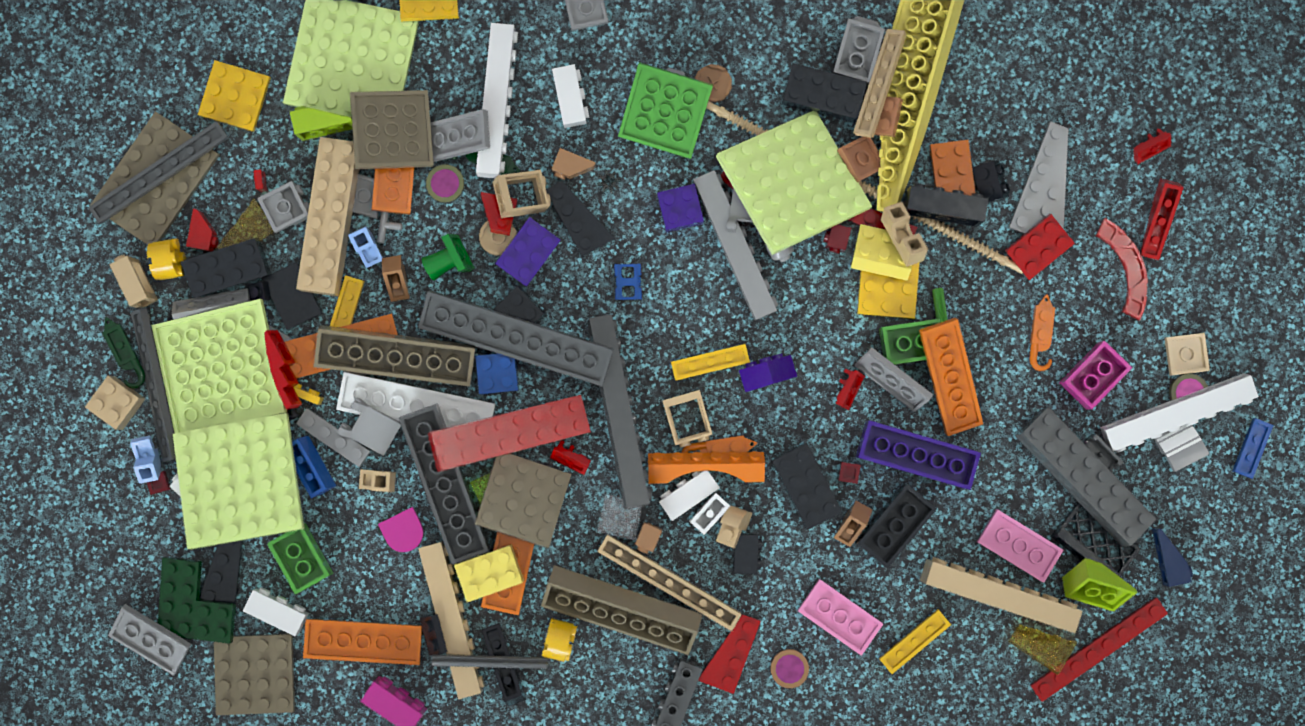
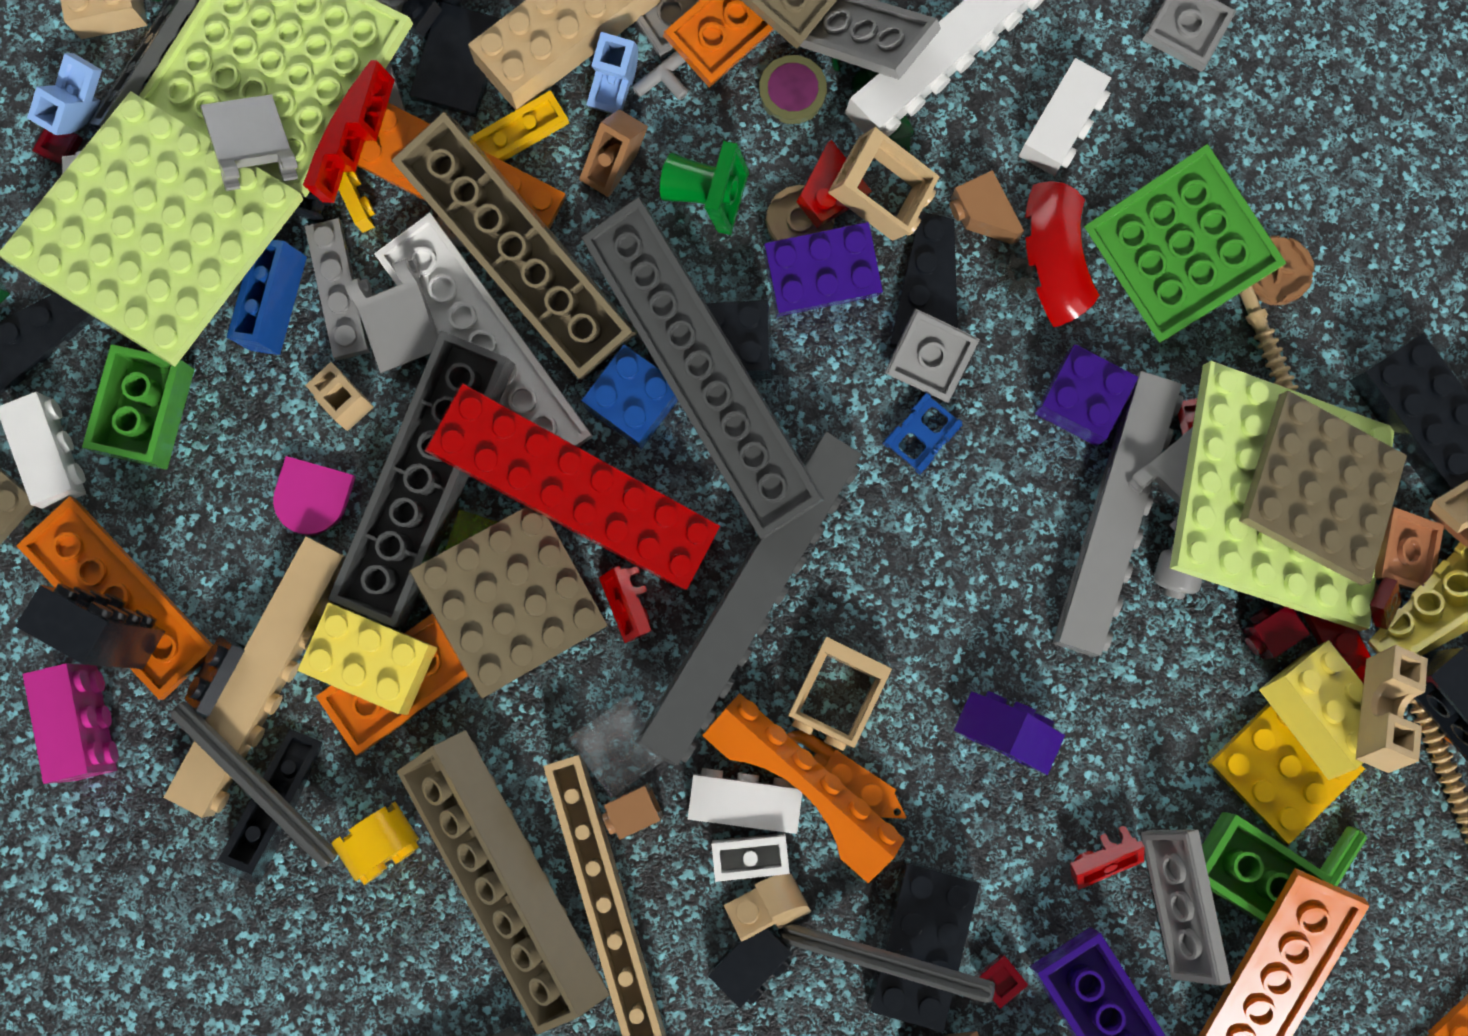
camera: 50 degrees right, 5 degrees down
(242, 408) = (248, 135): none -> light grey flag
(373, 657) = (91, 627): none -> black brick
(603, 247) = (931, 355): none -> light grey tile
(615, 159) = (1058, 251): none -> red brick
(710, 362) = (940, 644): yellow plate -> none
(797, 505) = (889, 962): none -> dark grey axle
(805, 165) = (1323, 488): none -> dark tan plate
(870, 189) = (1385, 603): none -> dark red tile

